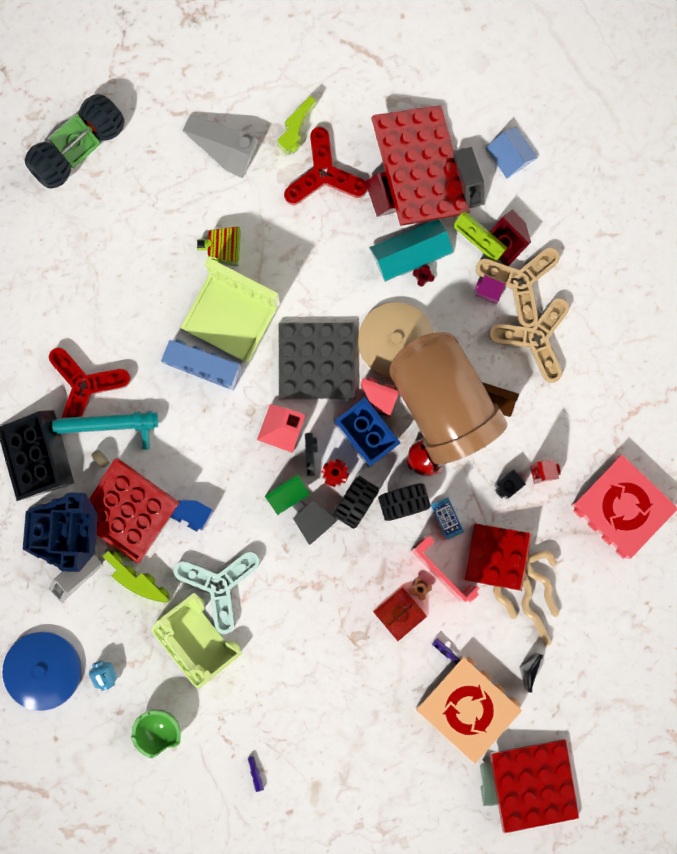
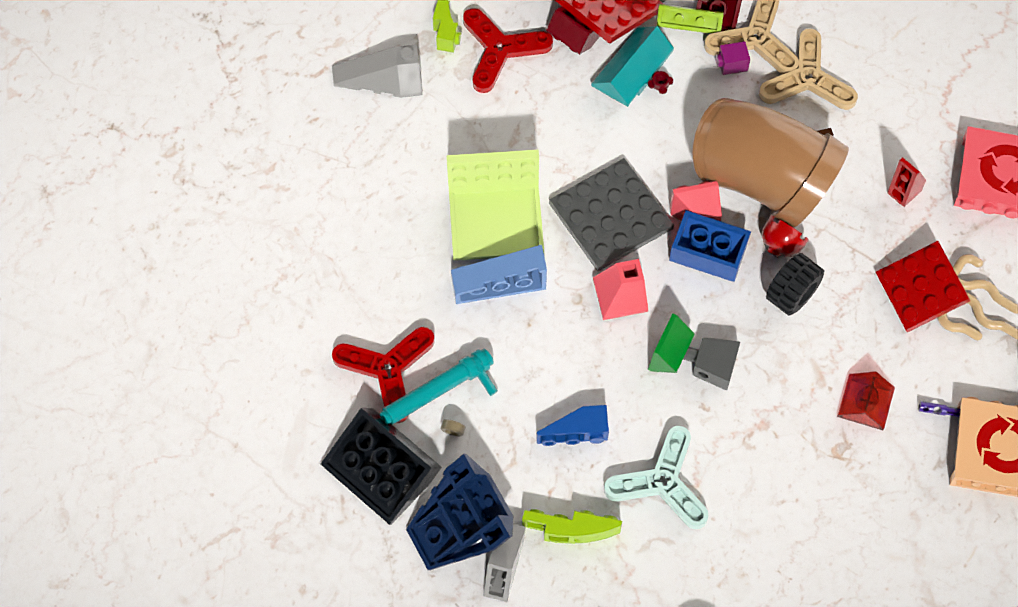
camera: 30 degrees left, 20 degrees down
(74, 141) = (221, 171): black plate -> none
(130, 510) = (523, 454): red plate -> none
(194, 642) = (676, 554): yellowish green windscreen -> none
(222, 245) = (436, 158): torso -> none
(310, 447) = (666, 288): black wing -> none
(335, 480) = (705, 302): red brick -> none
(356, 502) = (747, 311): black tyre -> none
(387, 332) = (665, 151): tan dish -> none
(415, 589) = (864, 359): medium nougat plate -> none
(447, 518) = (845, 284): tile -> none
(468, 594) = (882, 322): coral panel -> none
(517, 482) = (886, 209): black brick -> none

